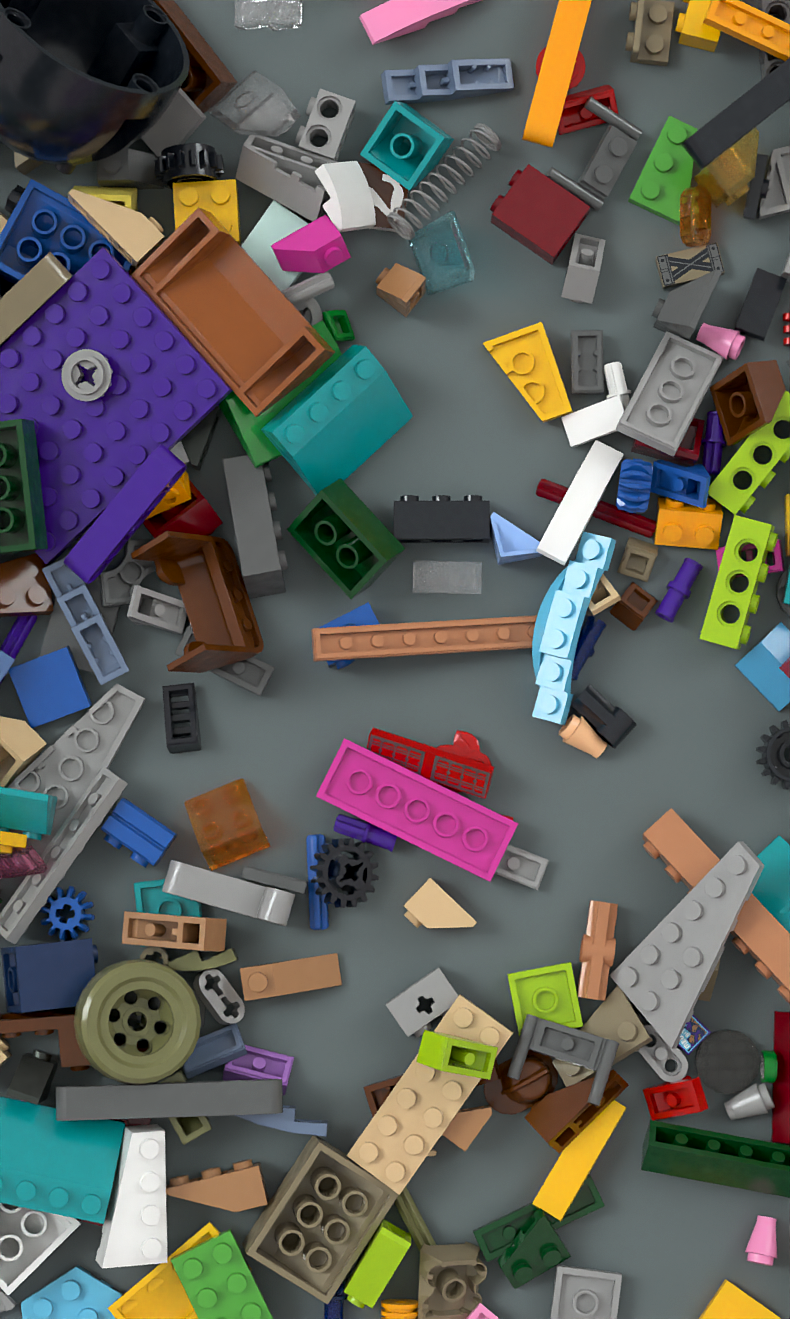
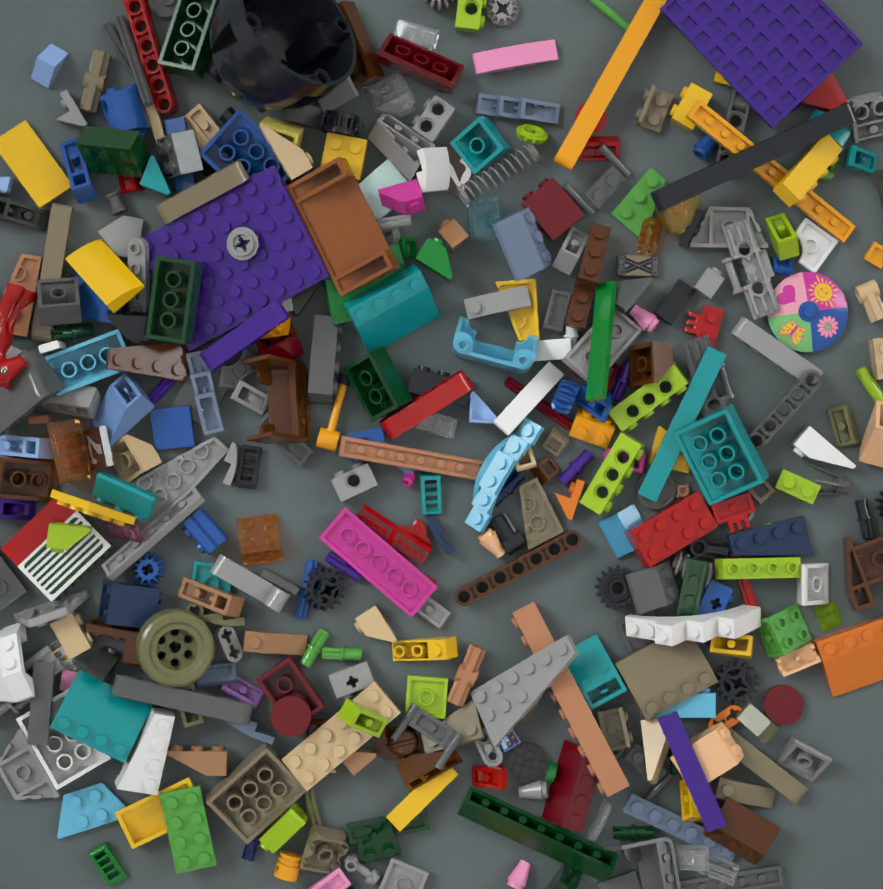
camera: 15 degrees right, 5 degrees up
(153, 710) = (233, 458): none -> light grey slope
(285, 50) = (420, 63): none -> dark red slope
(292, 641) = (328, 437): none -> light orange piece
(334, 1046) = (289, 679): none -> dark red brick
(341, 715) = (345, 490): none -> light grey brick
(344, 1081) = (290, 716): none -> dark red tile
(352, 969) = (314, 648): none -> bright green axle
(384, 329) = (435, 258): none -> green slope
(397, 967) = (342, 653): none -> bright green axle
(428, 549) = (426, 404): none -> red beam
(428, 667) = (408, 476): none -> dark pink arm
(461, 659) = (430, 476): none -> teal slope
(479, 110) = (531, 134): none -> lime gear
(493, 737) = (437, 529): none -> dark blue slope
(494, 371) = (497, 302): none -> light grey slope
(499, 1292) = (352, 863): none -> light grey bar
(509, 272) = (522, 243): none -> sand blue slope
(523, 926) = (425, 649): none -> yellow slope
(543, 453) = (469, 349): none -> medium azure windscreen
(620, 298) = (587, 276): none -> reddish brown bracket
(641, 675) = (538, 514): none -> dark tan wing
(647, 759) = (511, 576): none -> reddish brown beam
(668, 385) = (601, 341): none -> green tile
(684, 647) = (569, 504): none -> orange slope
(742, 63) = (704, 147): none -> blue cone

